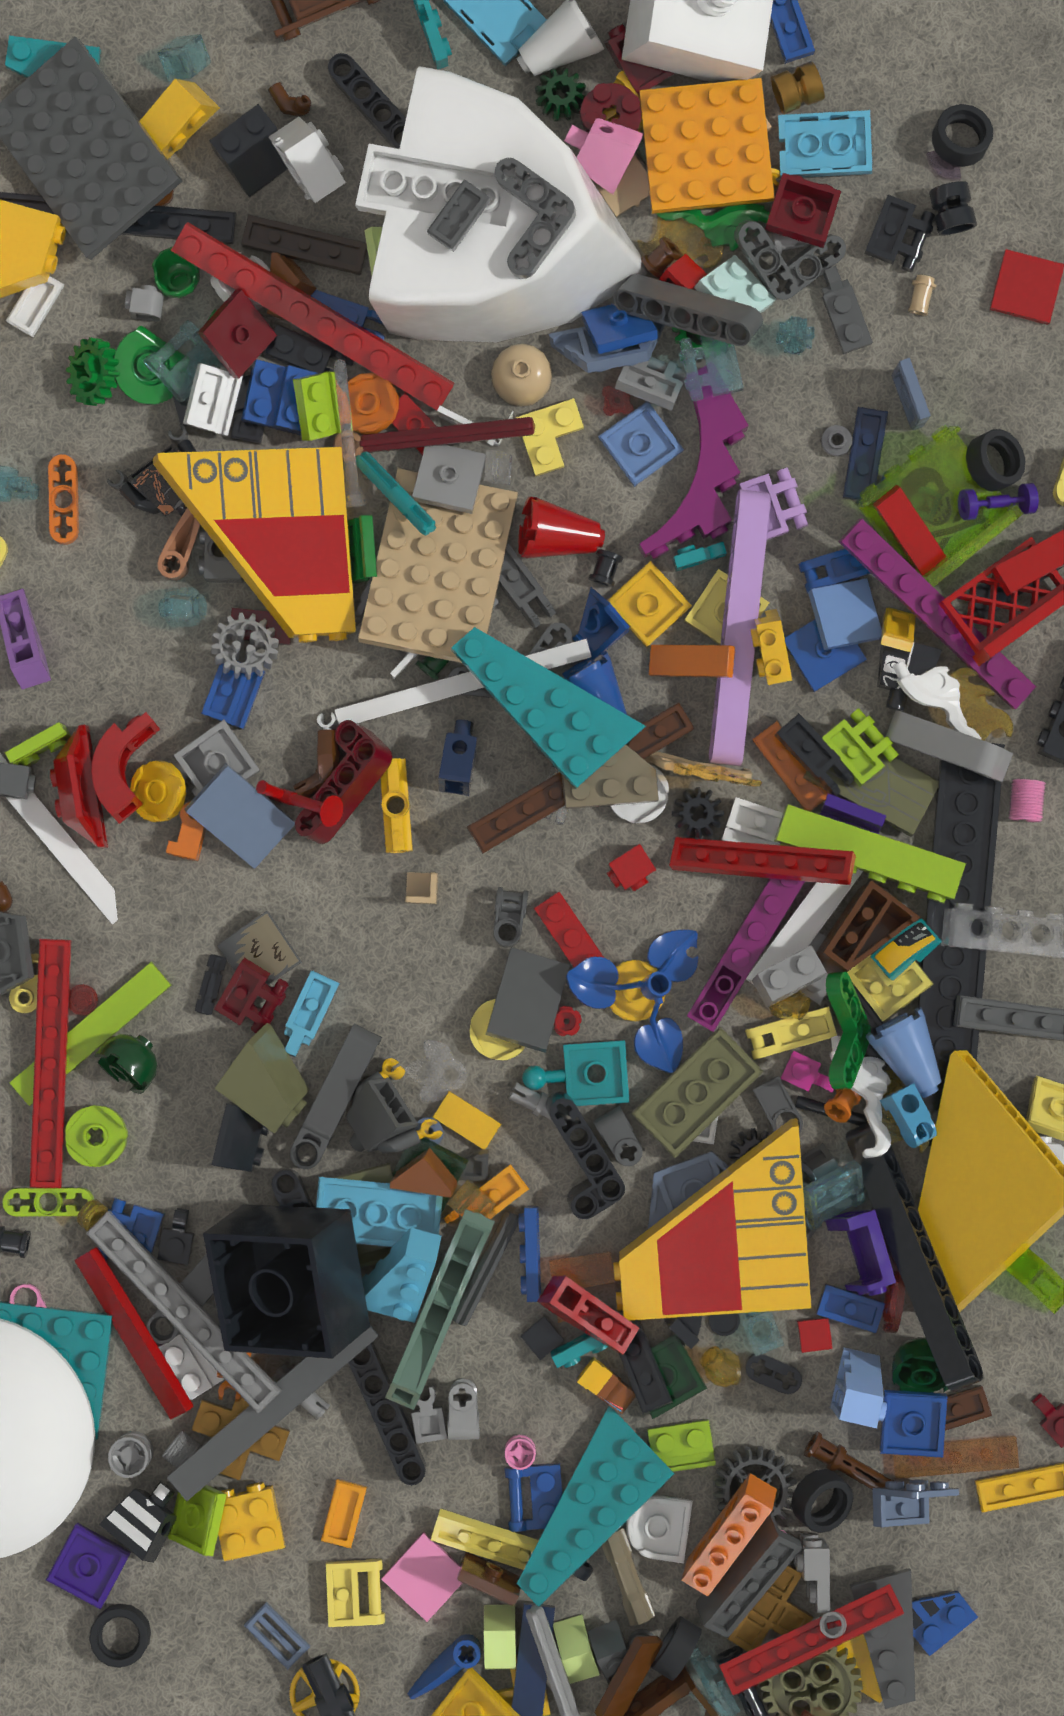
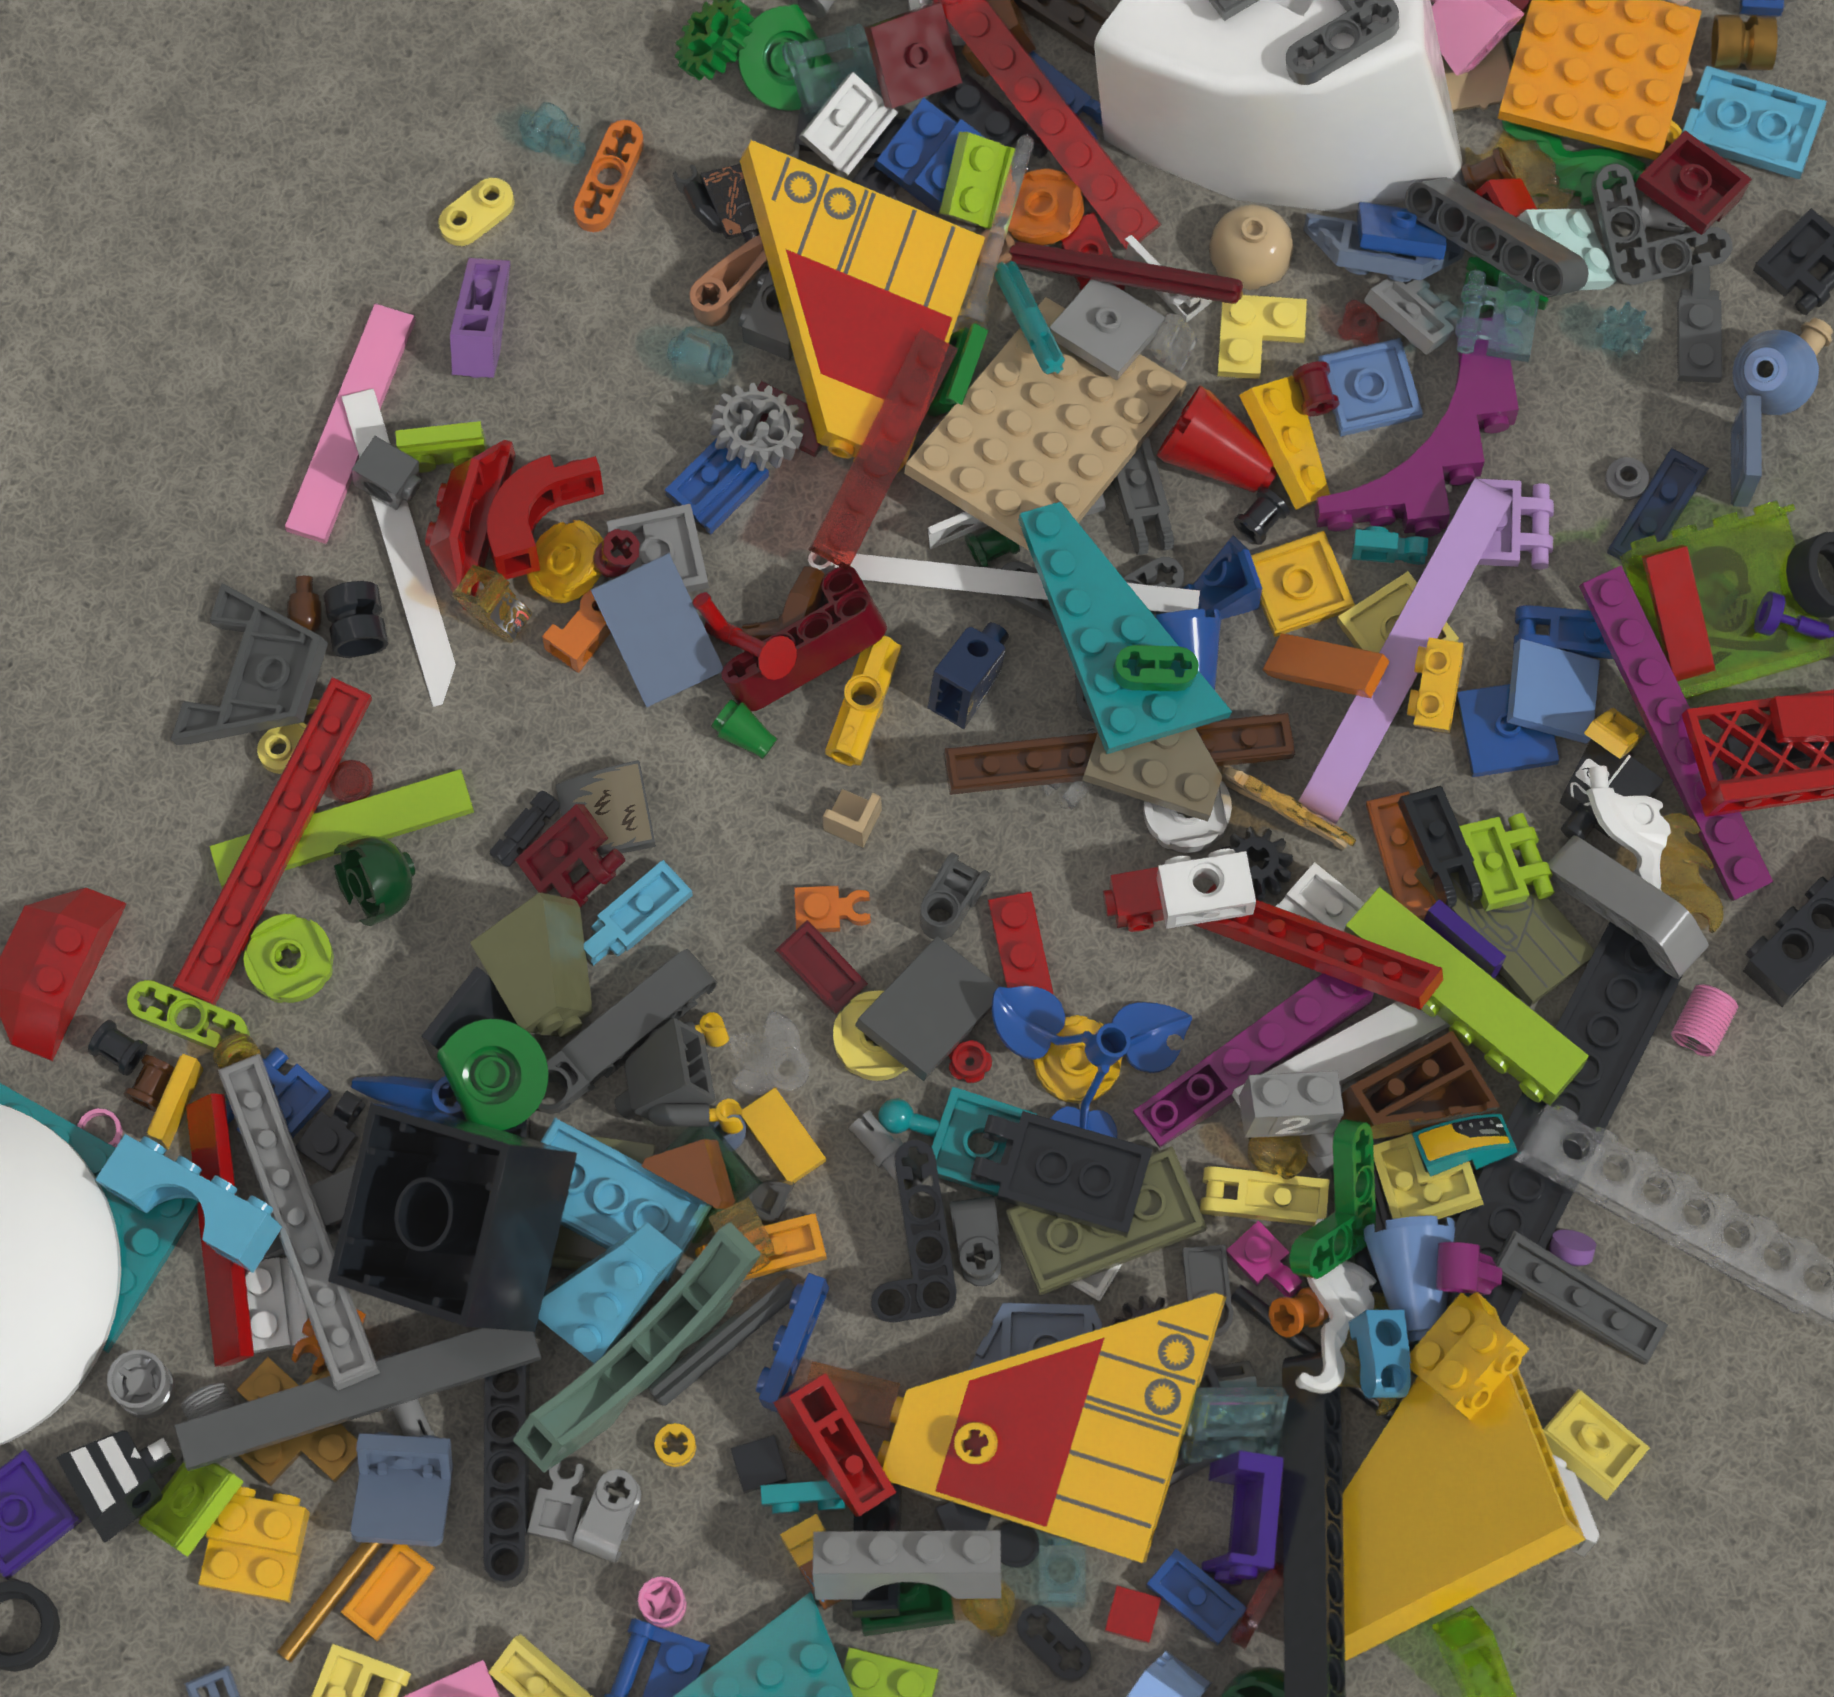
camera: 25 degrees right, 15 degrees down
(35, 889) = (355, 618): none -> black wheel
(45, 1256) = (150, 1083): none -> reddish brown bush
(66, 1263) = (174, 1100): none -> yellow tile
(125, 843) = (495, 606): none -> clear yellow leg
(146, 1337) = (147, 1178): none -> medium azure arch
(201, 777) = (616, 540): none -> dark red bush
(220, 1190) = (409, 1093): none -> blue piece
(269, 1166) = (495, 1072): none -> green hat
(312, 1521) = (328, 1600): none -> pearl gold bar
(325, 858) = (742, 728): none -> green cone
(326, 1453) = (402, 1489): none -> sand blue bracket
(337, 630) = (883, 449): none -> clear red plate
(428, 958) = (825, 908): none -> orange plate
(444, 999) = (821, 967): none -> dark red tile
(488, 1356) = (674, 1458): none -> yellow bush
(588, 728) = (1151, 659): none -> green beam
(602, 507) = (1287, 438): none -> yellow wing
(606, 463) = (1315, 388): none -> dark red bush
(661, 1074) = (1065, 1171): none -> black tile
(686, 1364) = (858, 1561): none -> light grey arch
(687, 1279) = (986, 1452): none -> yellow bush
(694, 849) = (1187, 906): none -> white brick
(907, 325) = (1793, 374): none -> medium blue cone
(942, 1041) = (1466, 1269): none -> magenta piece
(965, 1099) = (1466, 1355): none -> yellow plate
(999, 986) = (1573, 1247): none -> medium lavender piece

